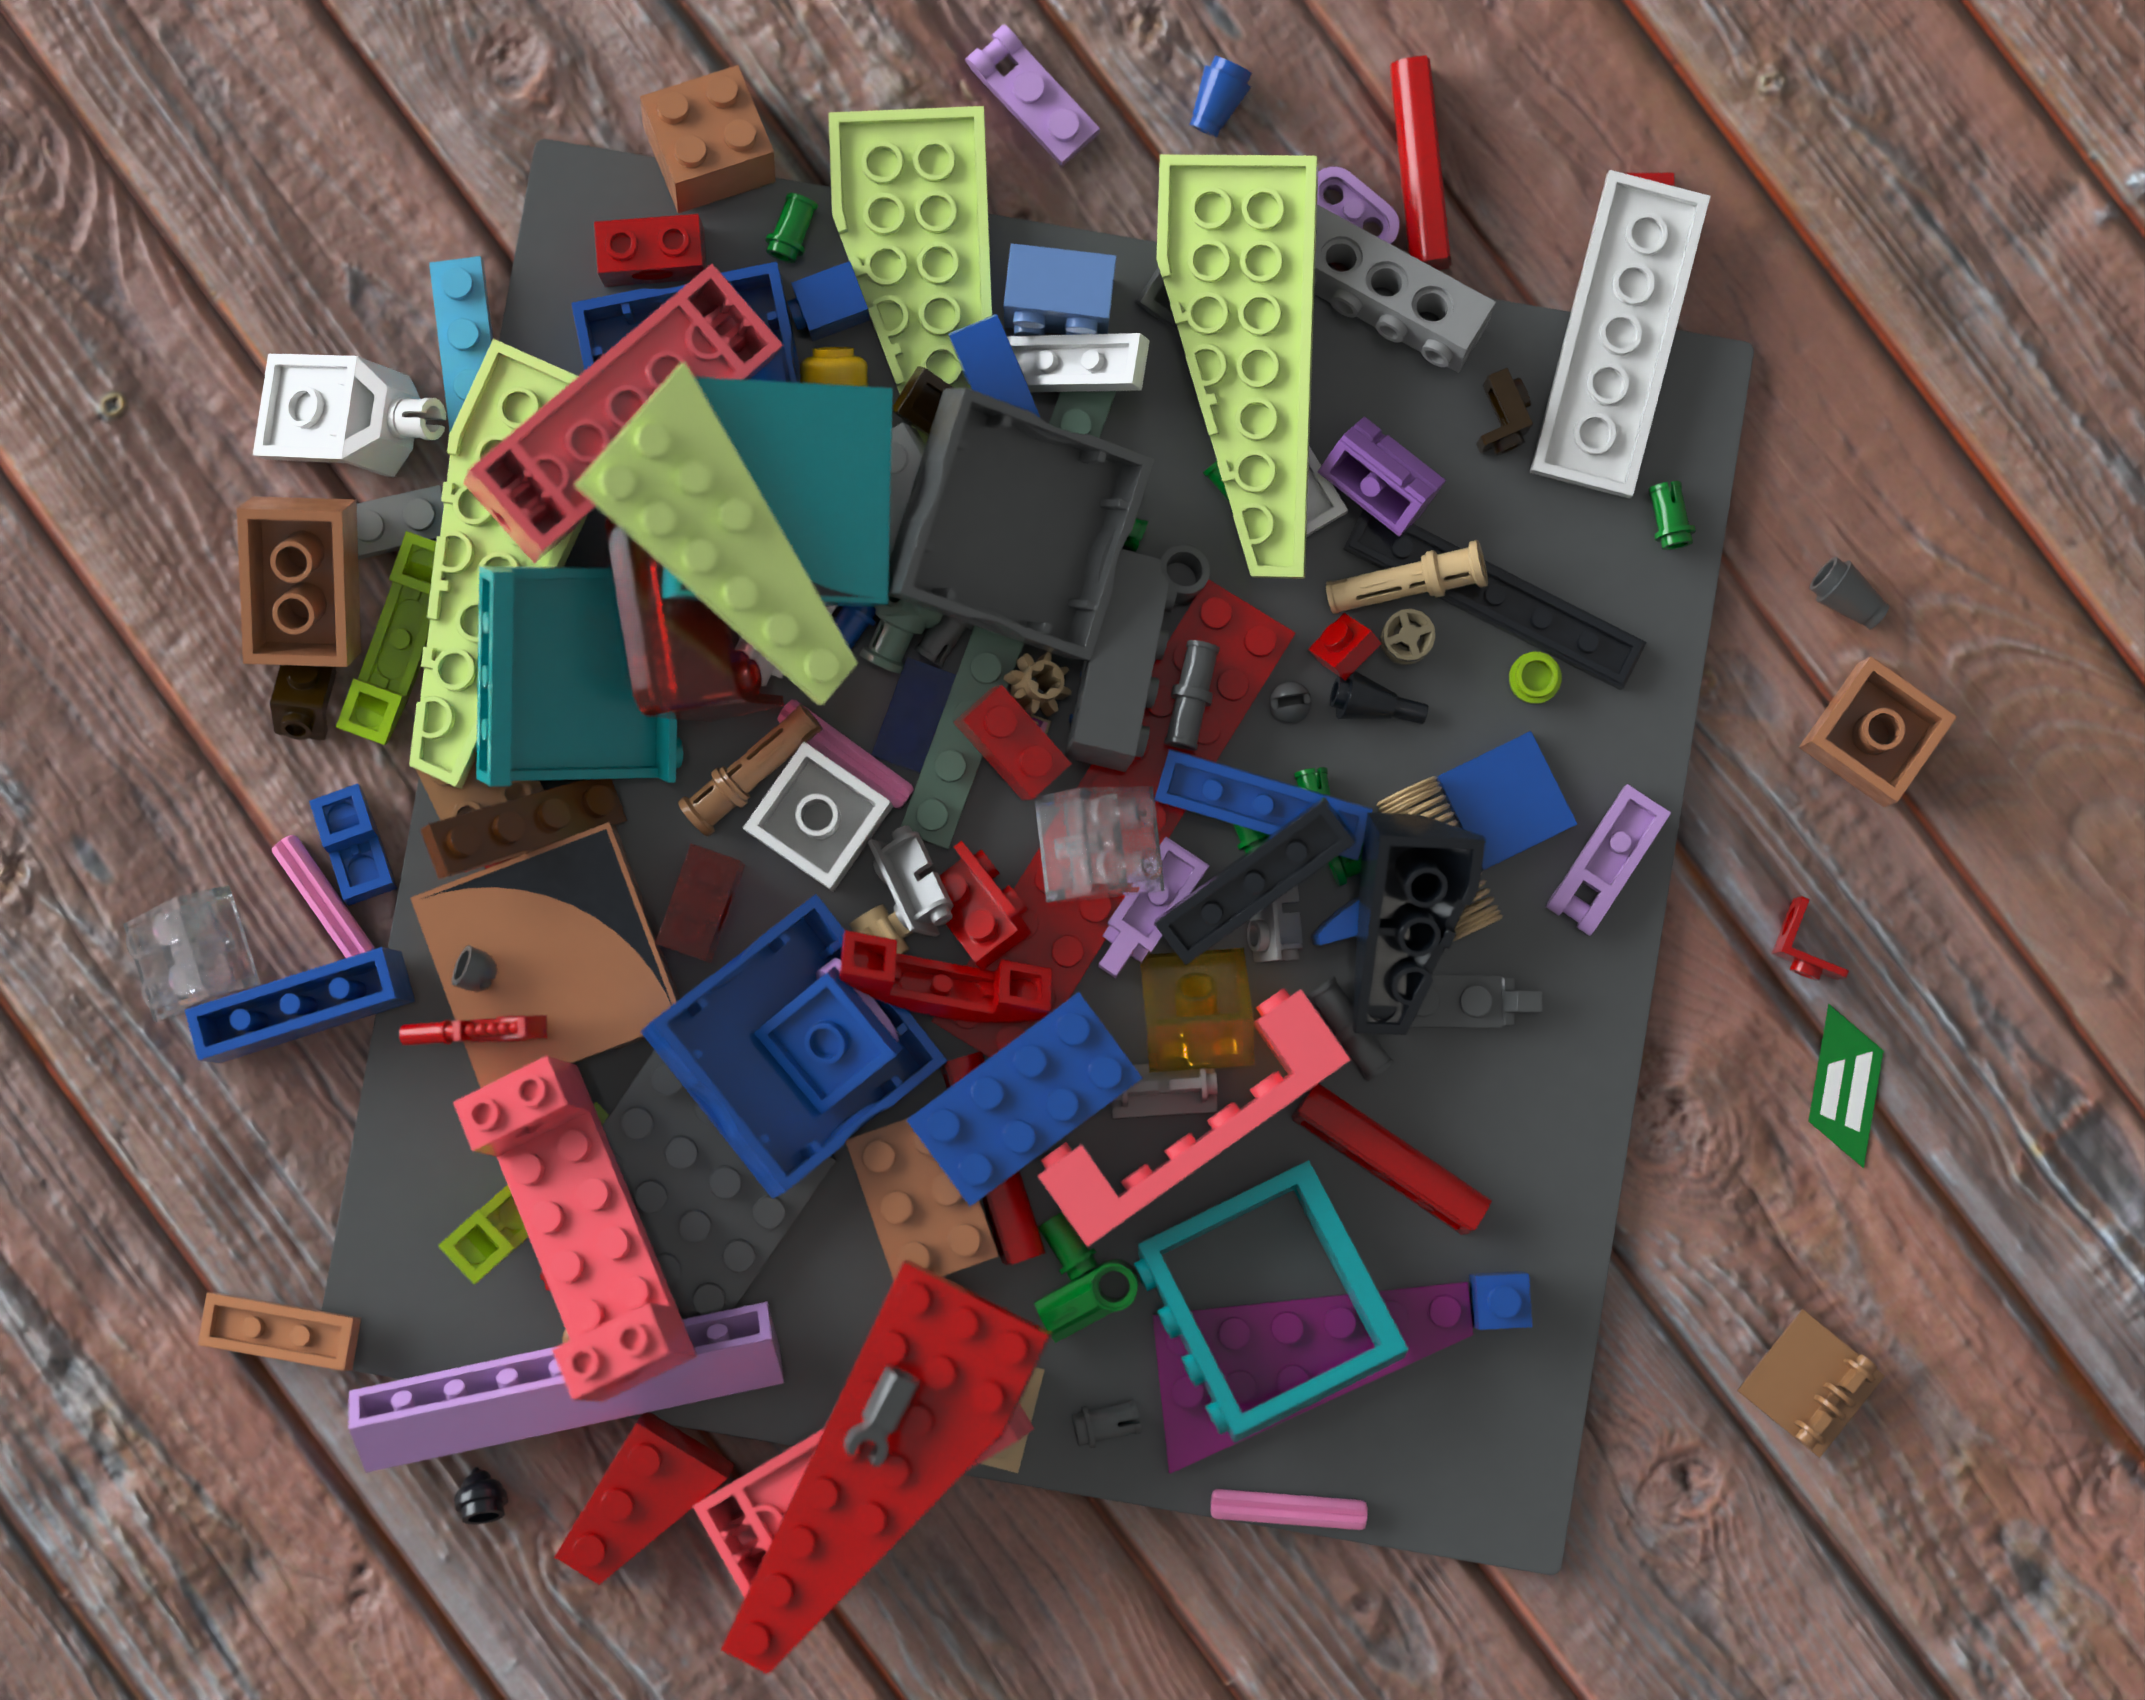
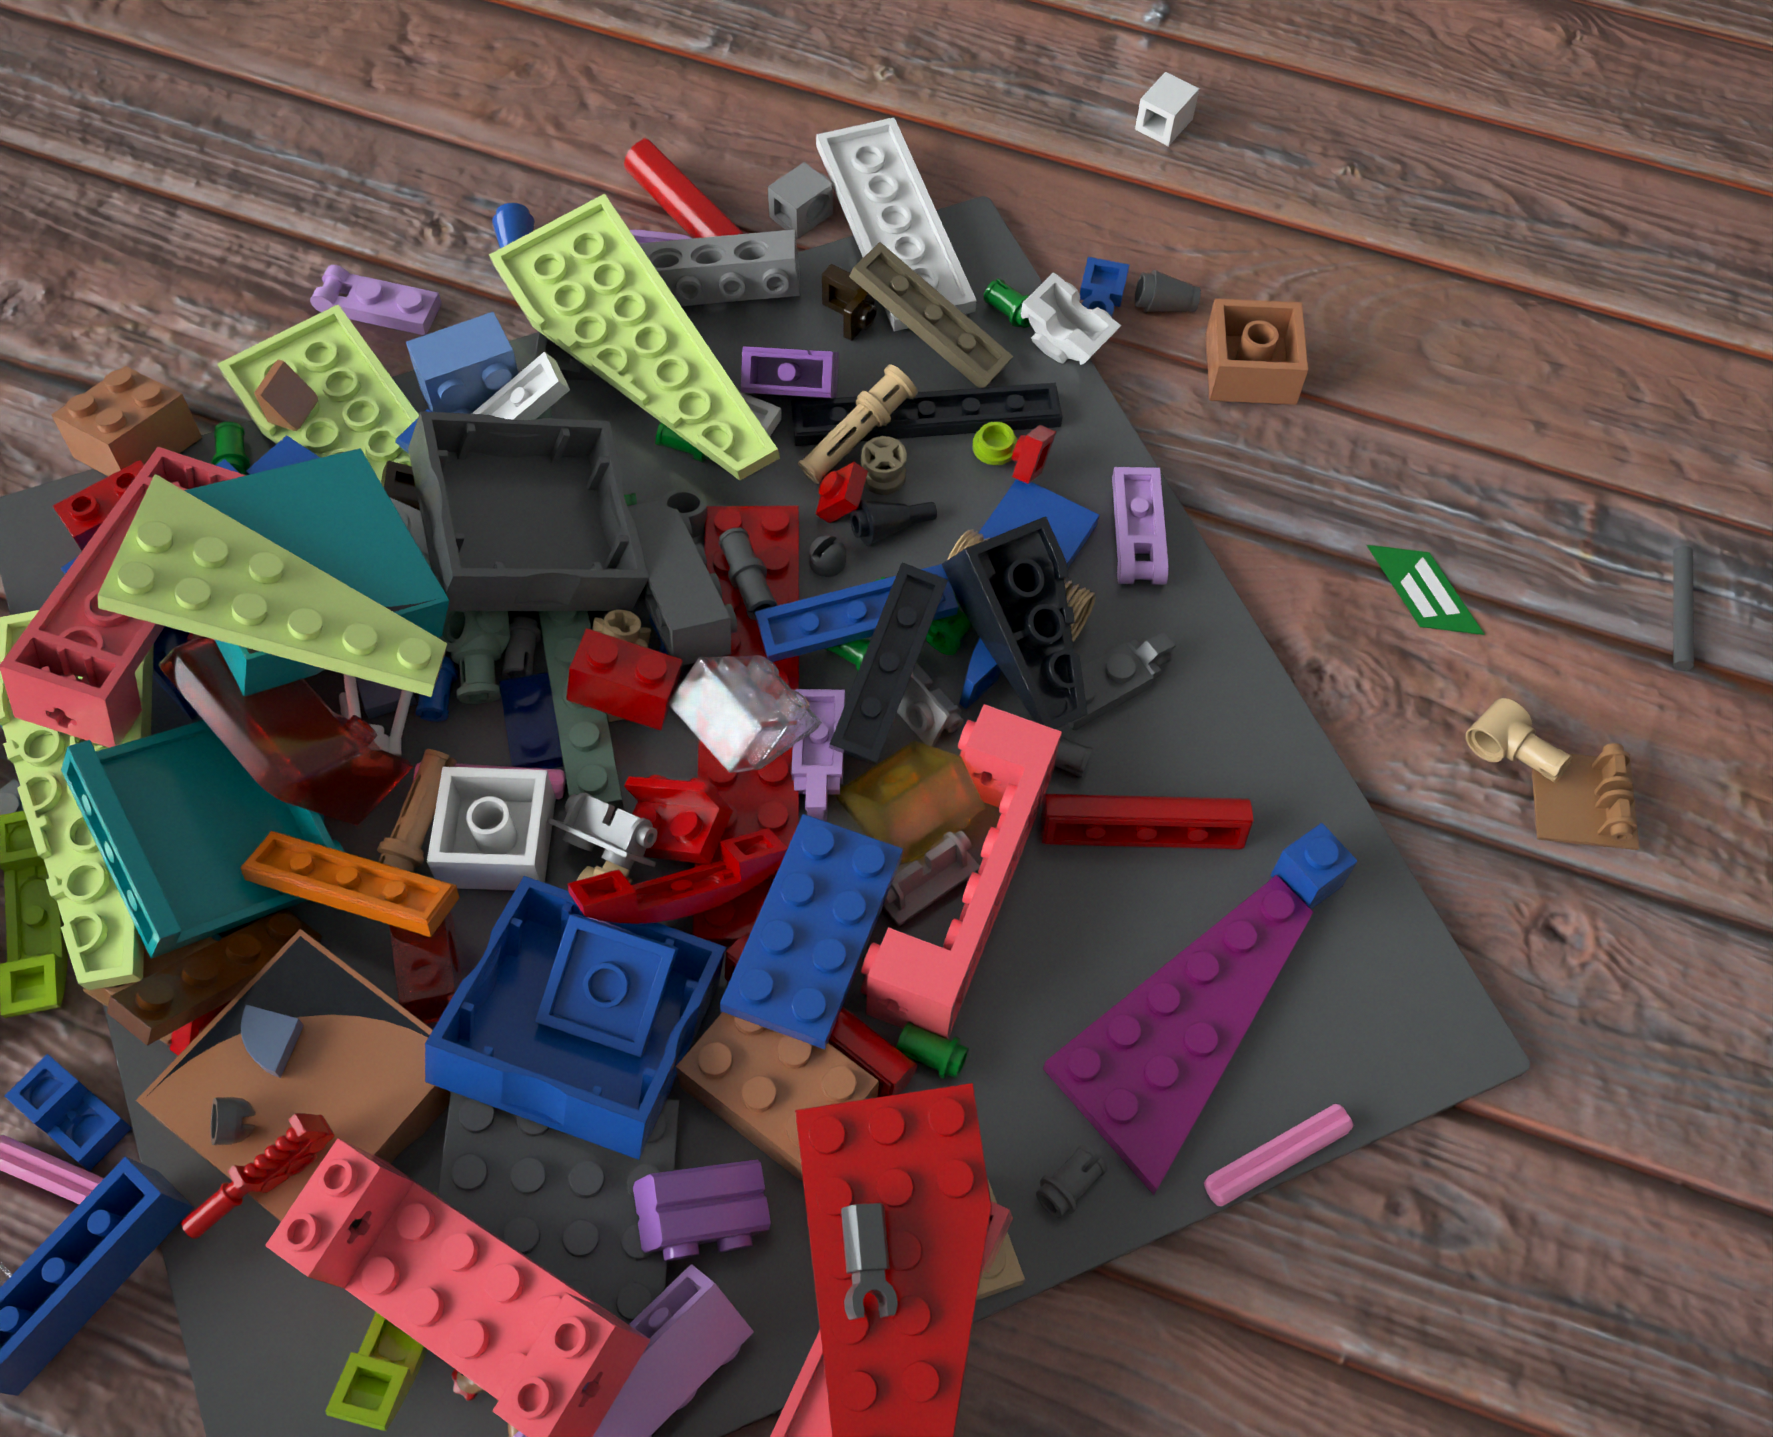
camera: 30 degrees left, 25 degrees down
(536, 913) = (269, 1037): none -> sand blue tile
(669, 808) = (351, 883): none -> orange tile
(799, 1265) = (700, 1208): none -> medium lavender brick
(872, 213) = (285, 397): none -> nougat slope
(1083, 1302) = (987, 1078): green piece -> none
(1345, 1261) = (1167, 907): teal window -> none
(1549, 231) = (800, 199): none -> light grey brick
(1556, 719) = (1031, 453): none -> red plate
(1565, 497) = (930, 316): none -> dark tan plate
(1705, 584) = (1063, 324): none -> white cylinder
(1788, 1282) = (1508, 733): none -> tan pin
(1790, 542) = (1103, 284): none -> blue plate
(1802, 963) = (1322, 517): red bracket -> none
(2039, 344) = (1166, 108): none -> white brick
(2076, 1264) = (1683, 609): none -> dark grey bar

